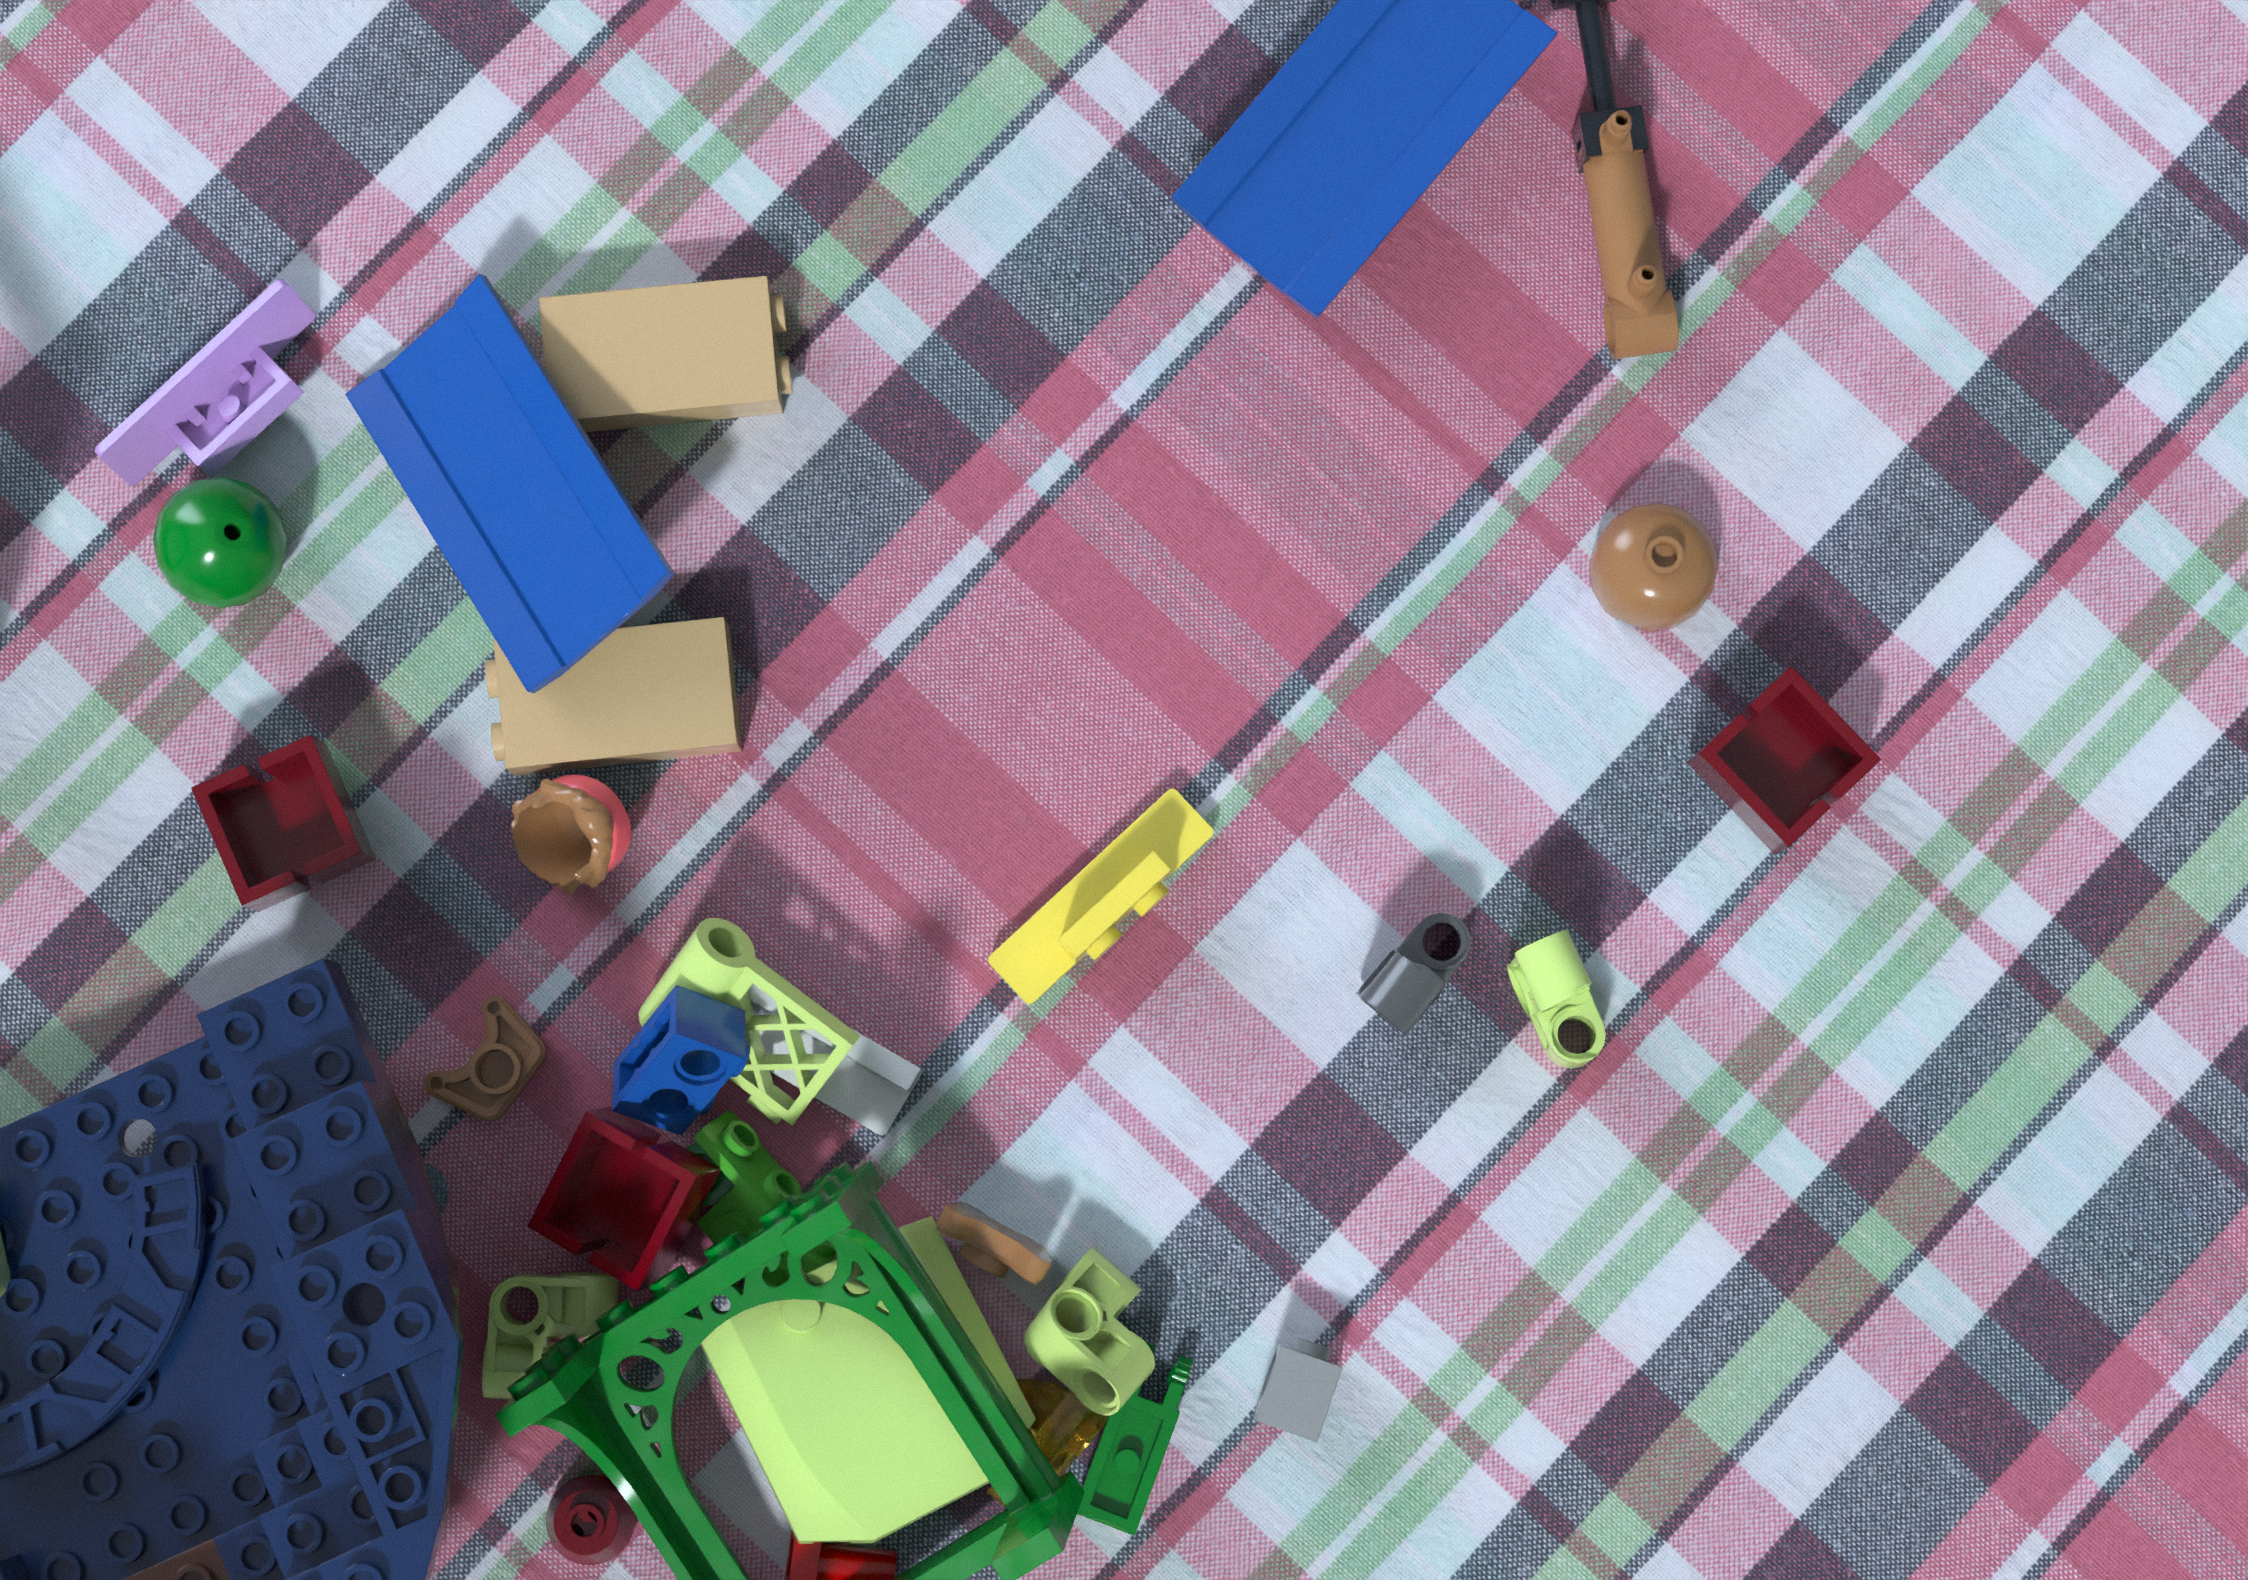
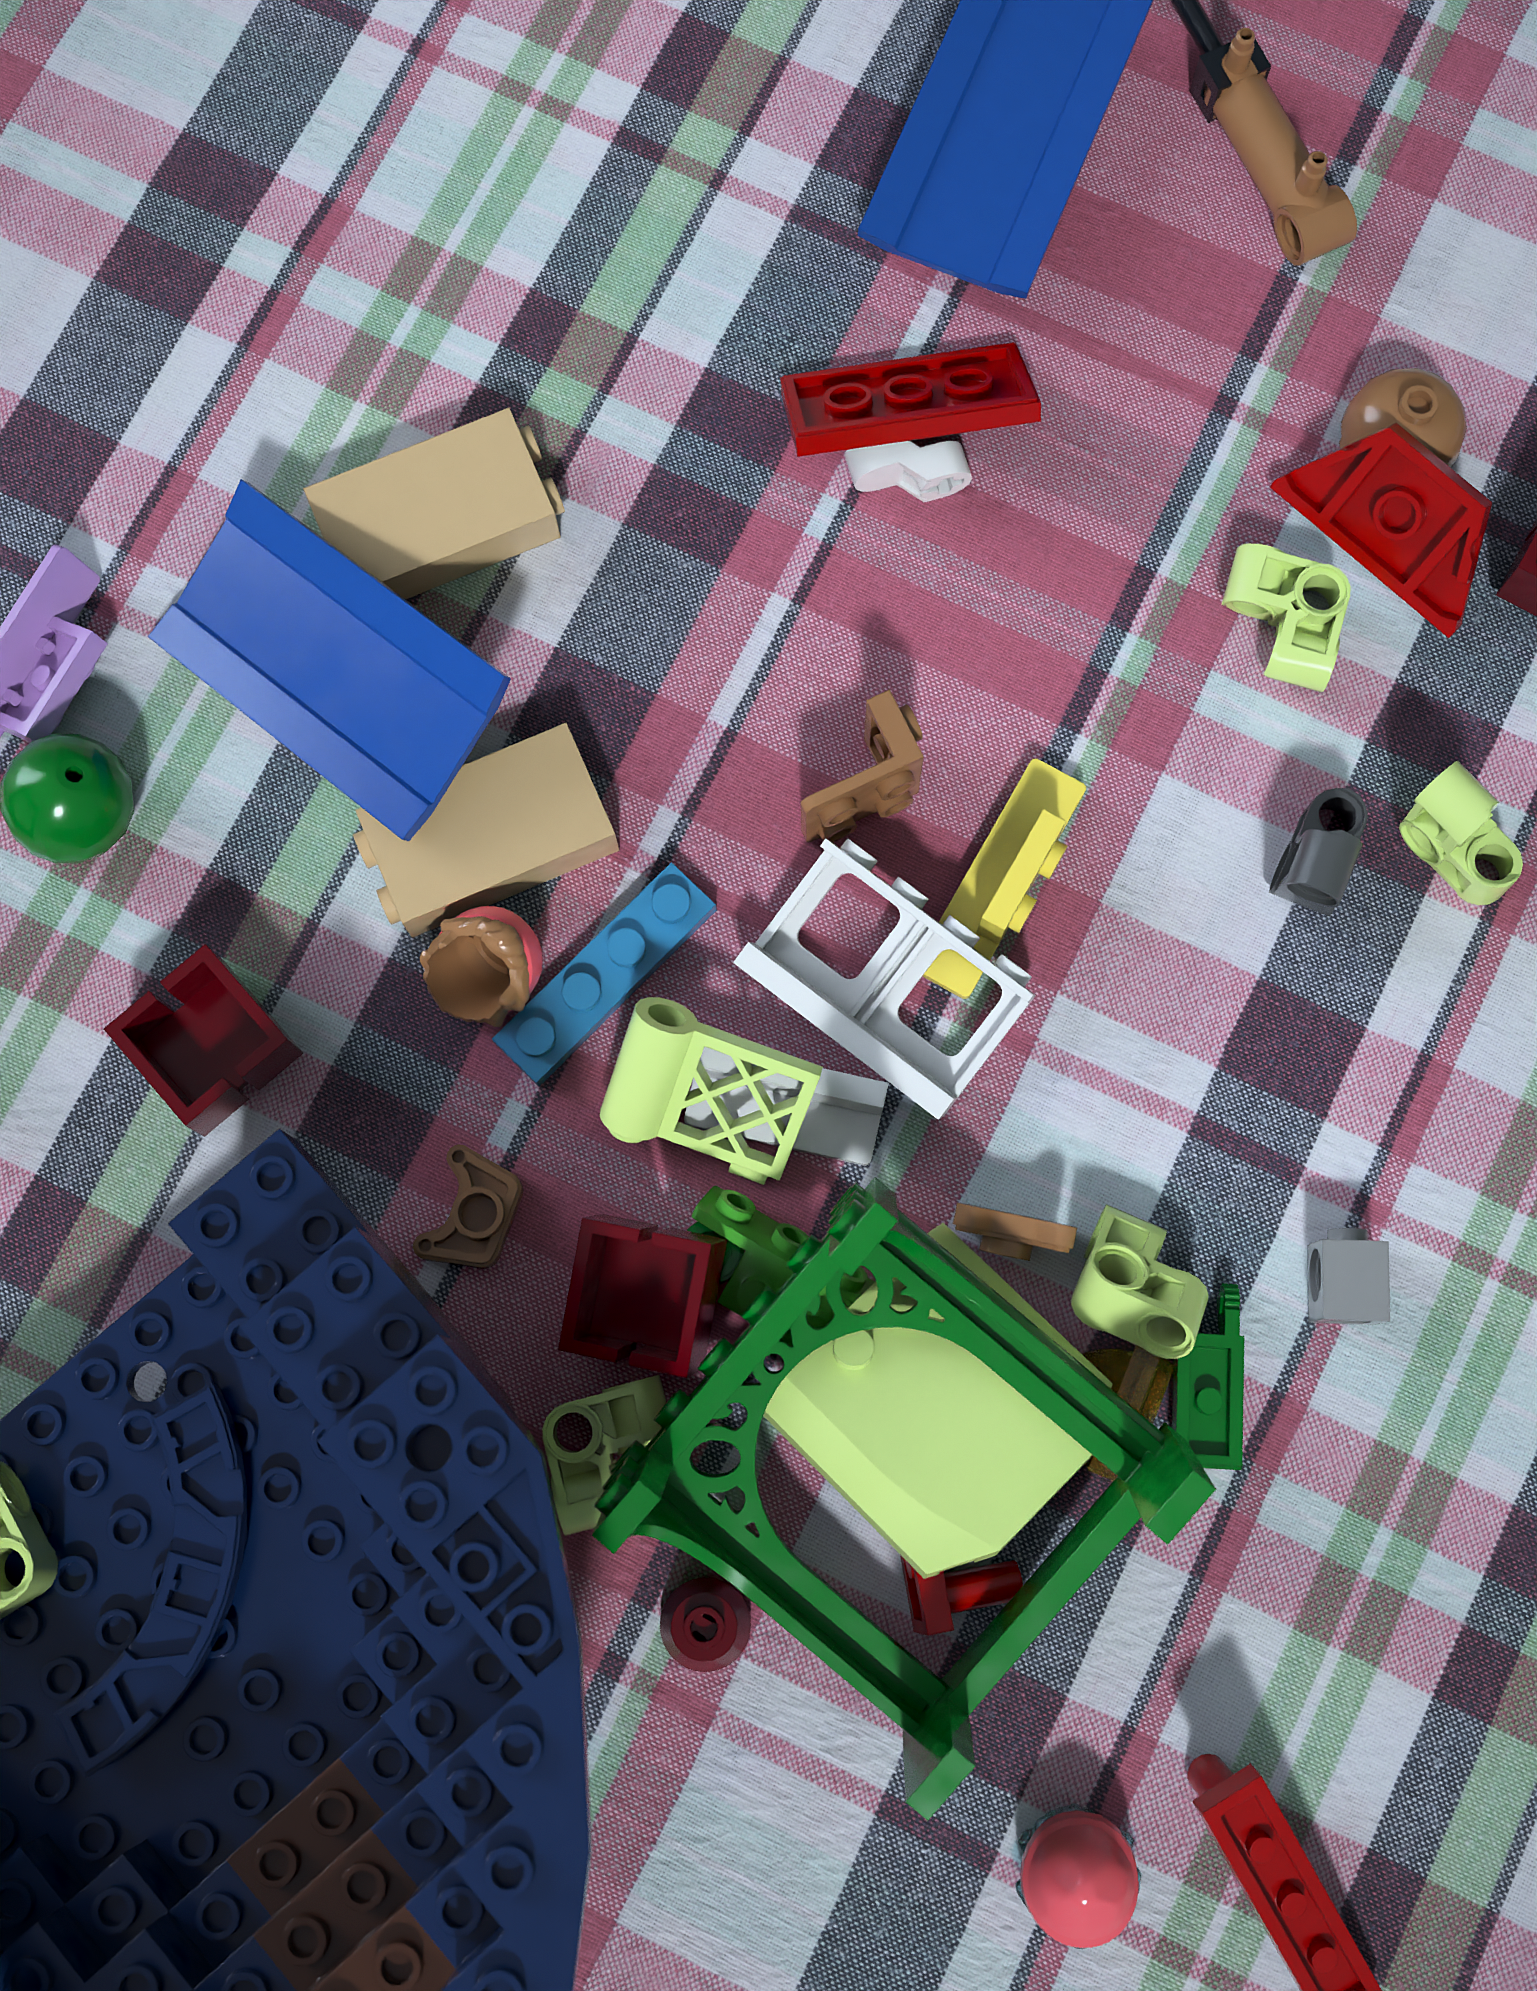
camera: 10 degrees left, 5 degrees down
(680, 1060) = (656, 1145): blue brick -> none
(688, 872) = (604, 974): none -> dark azure plate
(923, 988) = (865, 1009): none -> white window
(1013, 779) = (883, 788): none -> medium nougat bracket
(1131, 440) = (921, 471): none -> white piece
(1167, 385) = (909, 399): none -> red tile
(1476, 751) = (1271, 588): none -> yellowish green piece
(1609, 659) = (1398, 517): none -> red wing

